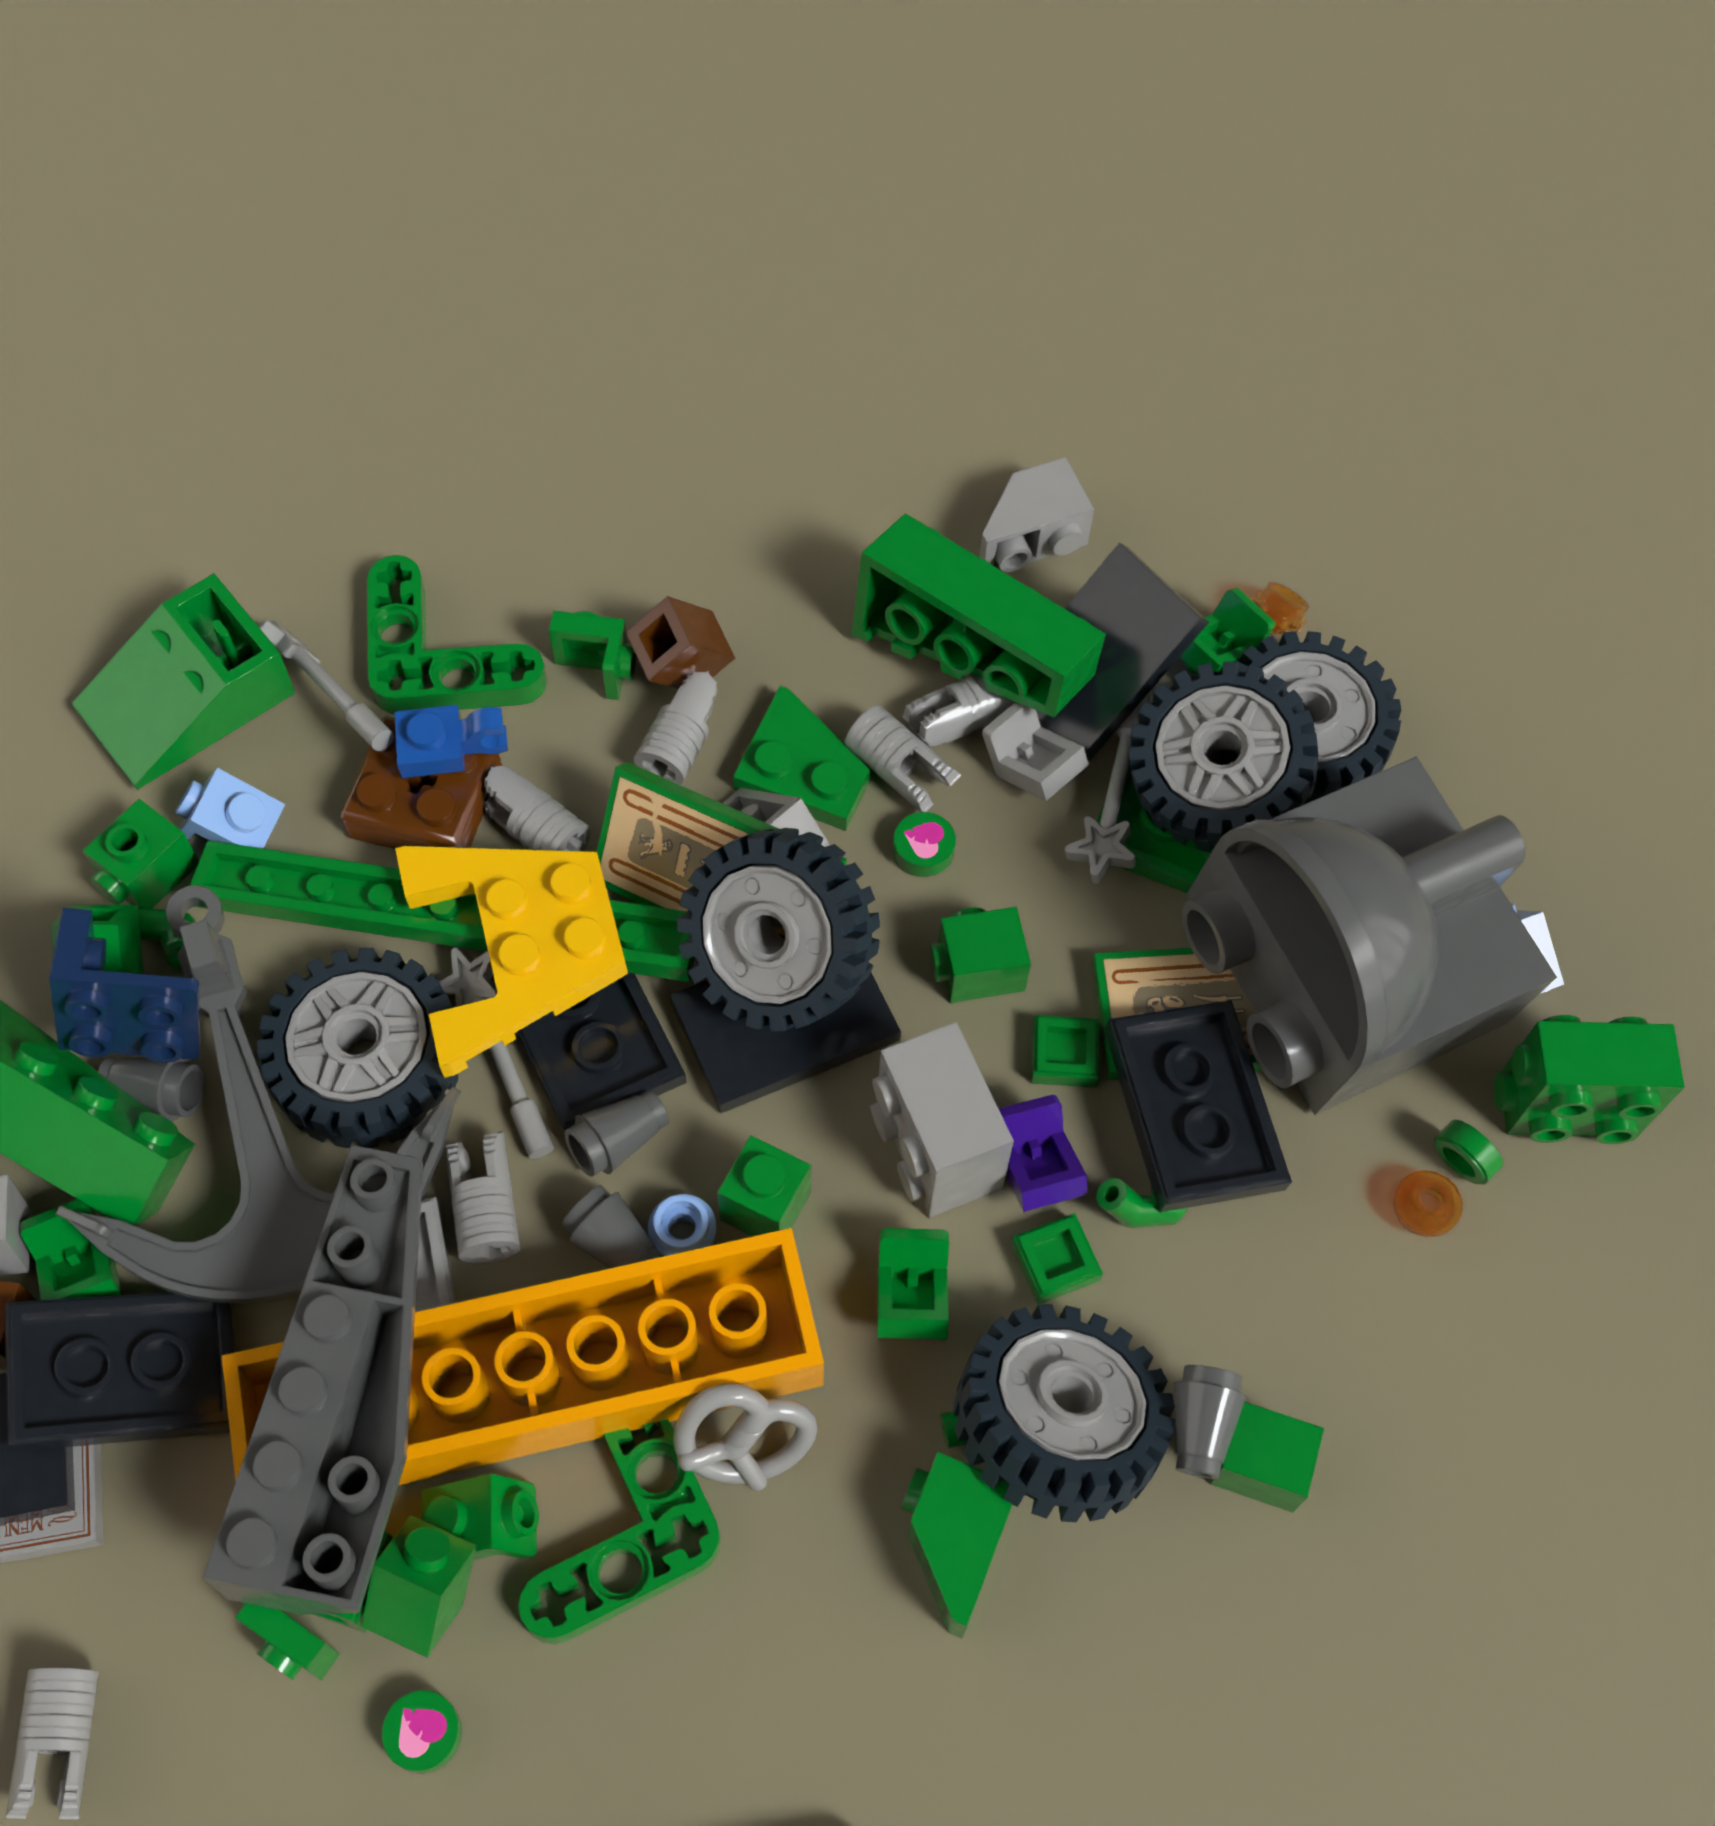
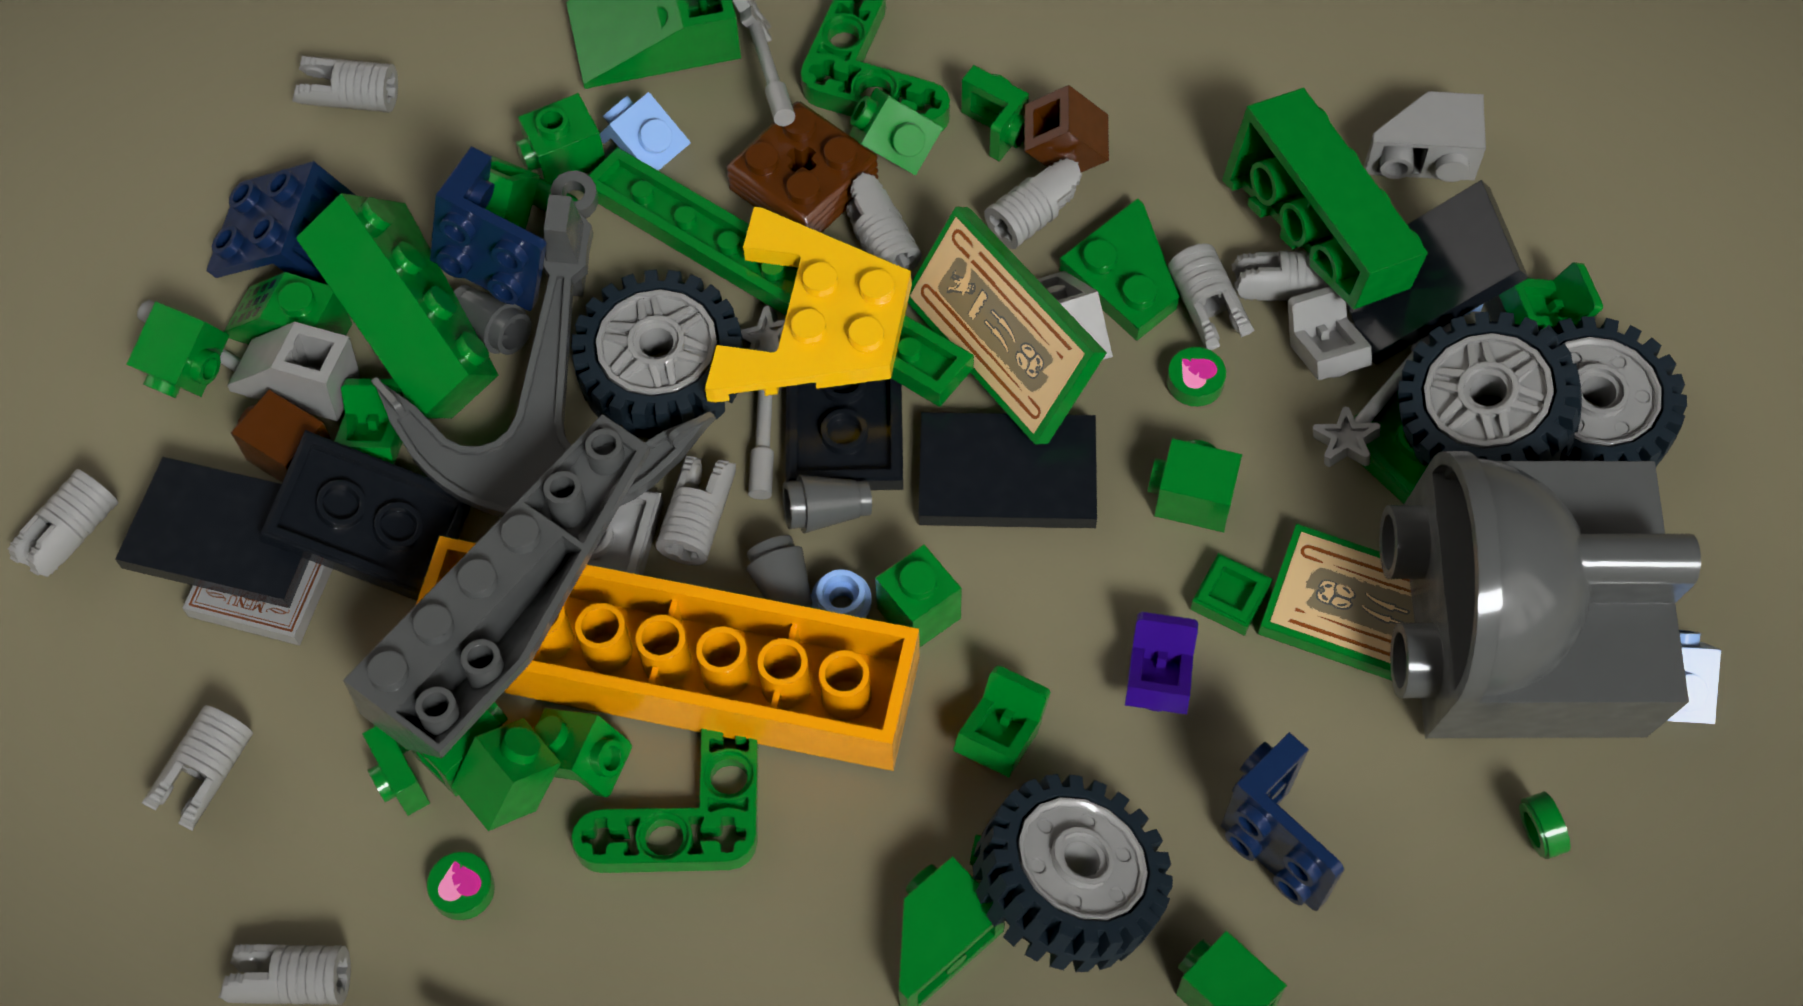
camera: 30 degrees right, 0 degrees up
(437, 738) = (830, 131): blue plate -> none
(522, 704) = (893, 130): none -> green bracket
(735, 1445) = (804, 776): light grey piece -> none
(822, 920) = (1054, 415): wheel -> none
(941, 1120) = (1086, 599): light grey brick -> none
(1056, 1258) = (1137, 757): green tile -> none
(1132, 1208) = (1220, 742): green arm -> none
(1196, 1106) = (1320, 678): black tile -> none
(1205, 1418) = (1186, 929): dark grey cone -> none
(1227, 1280) = (1264, 831): none -> dark blue bracket
(1282, 606) = (1621, 297): clear orange plate -> none
(1418, 1218) = (1477, 867): clear orange plate -> none
(1589, 1079) = (1683, 807): green brick -> none

